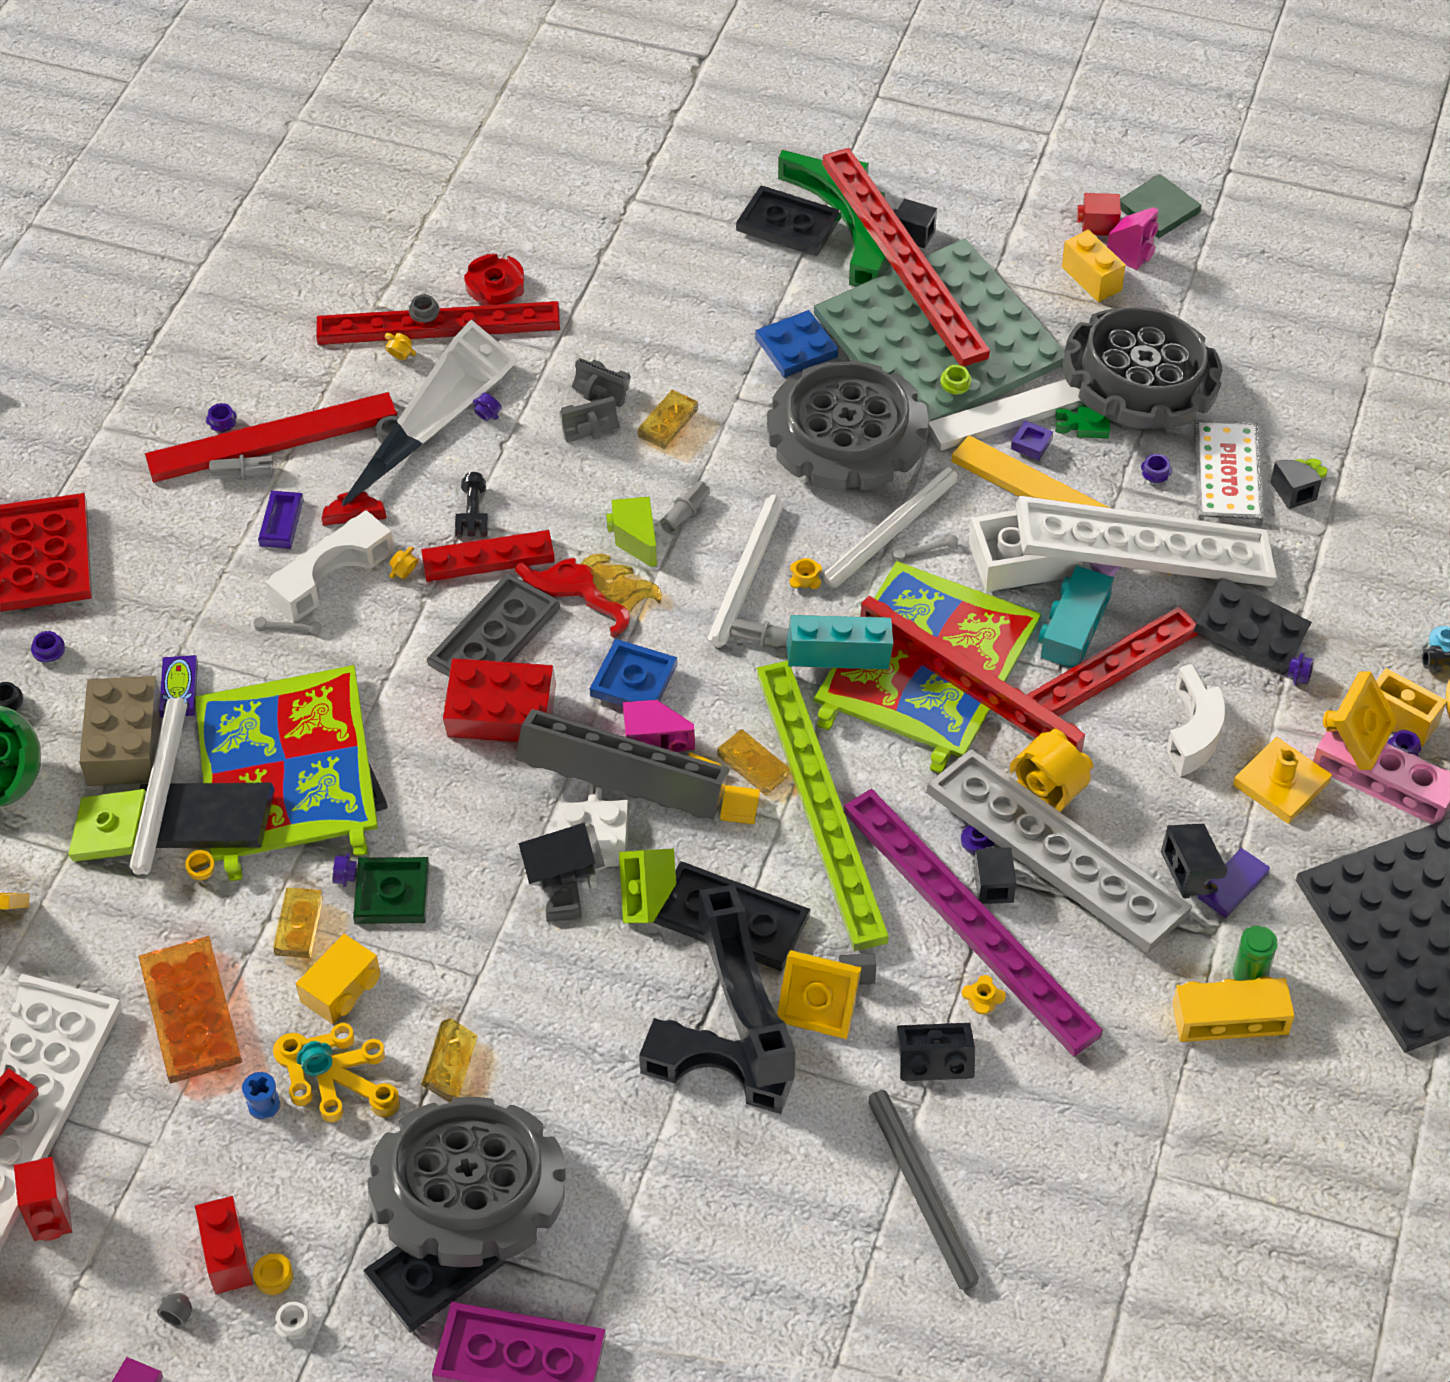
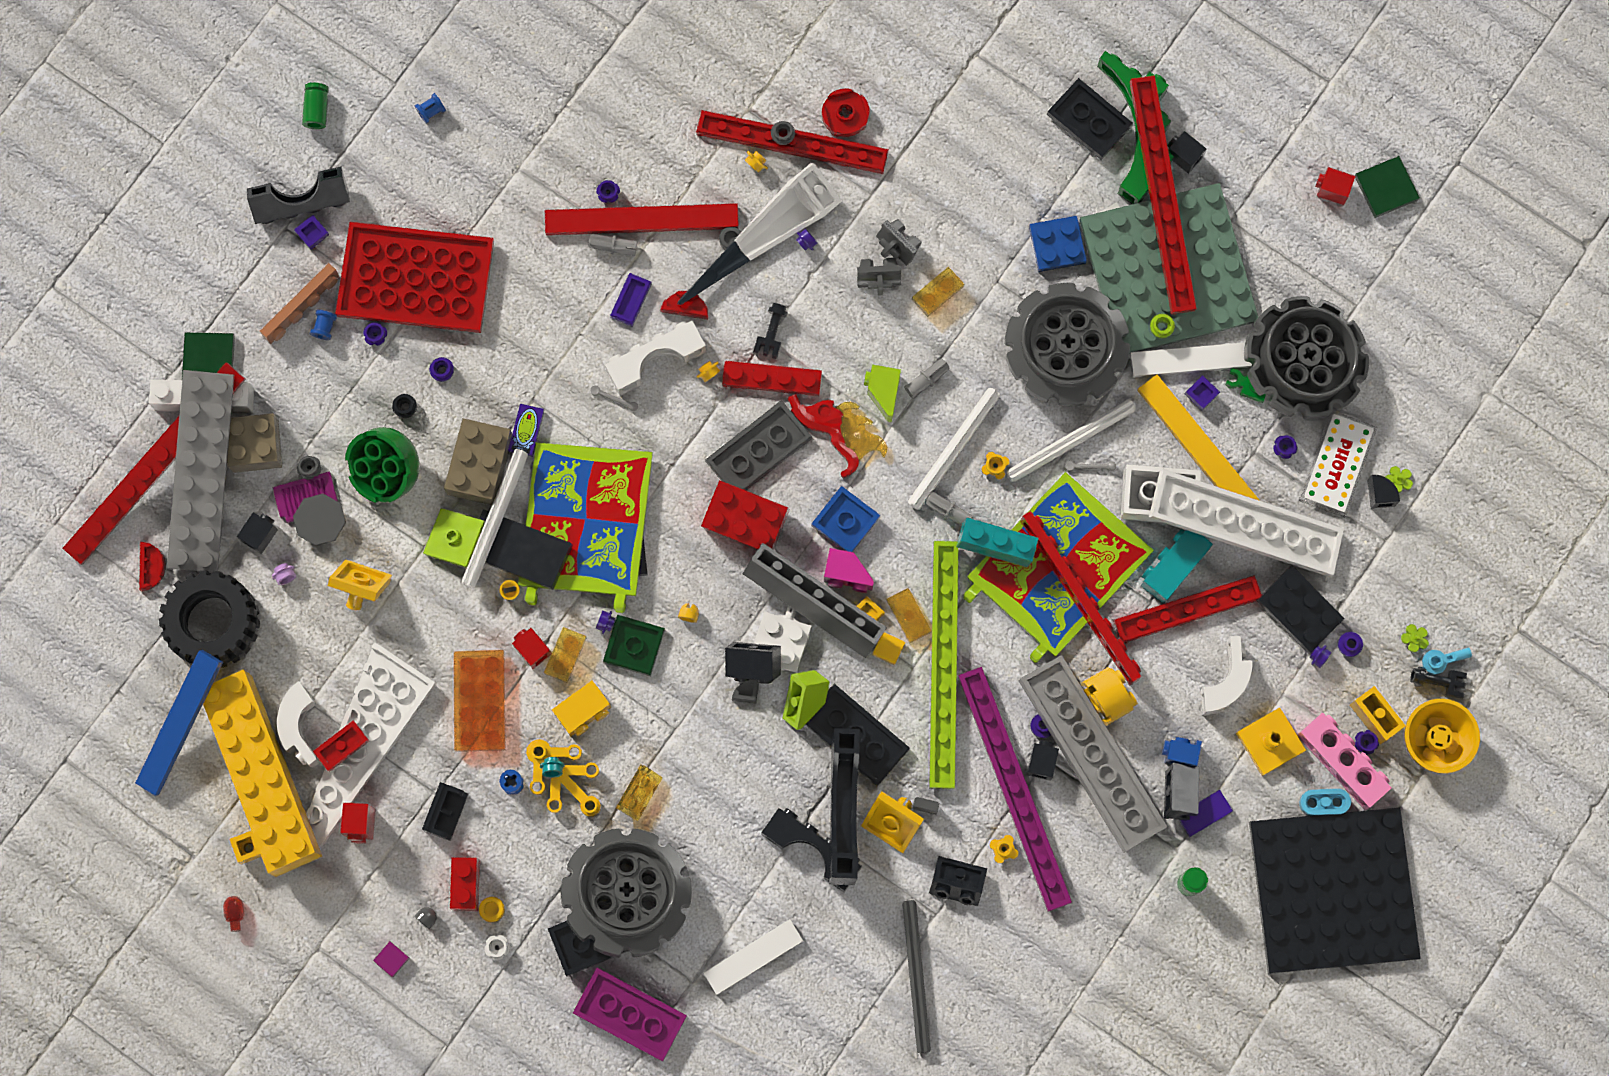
camera: 15 degrees right, 25 degrees up
(171, 1160) = (445, 811): none -> black hinge
(248, 925) = (531, 647): none -> red brick
(450, 833) = (689, 614): none -> yellow hinge
(678, 1229) = (753, 957): none -> white tile
(1093, 265) = (1309, 238): yellow brick -> none
(1134, 238) = (1350, 222): dark pink slope -> none
(1172, 811) = (1181, 751): none -> blue brick
(1233, 1009) = (1164, 911): yellow brick -> none
(1332, 649) = (1347, 651): none -> dark purple plate
(1363, 720) = (1335, 730): yellow tile -> none
(1381, 825) = (1324, 802): none -> medium azure plate
(1408, 623) = (1415, 638): none -> lime plant

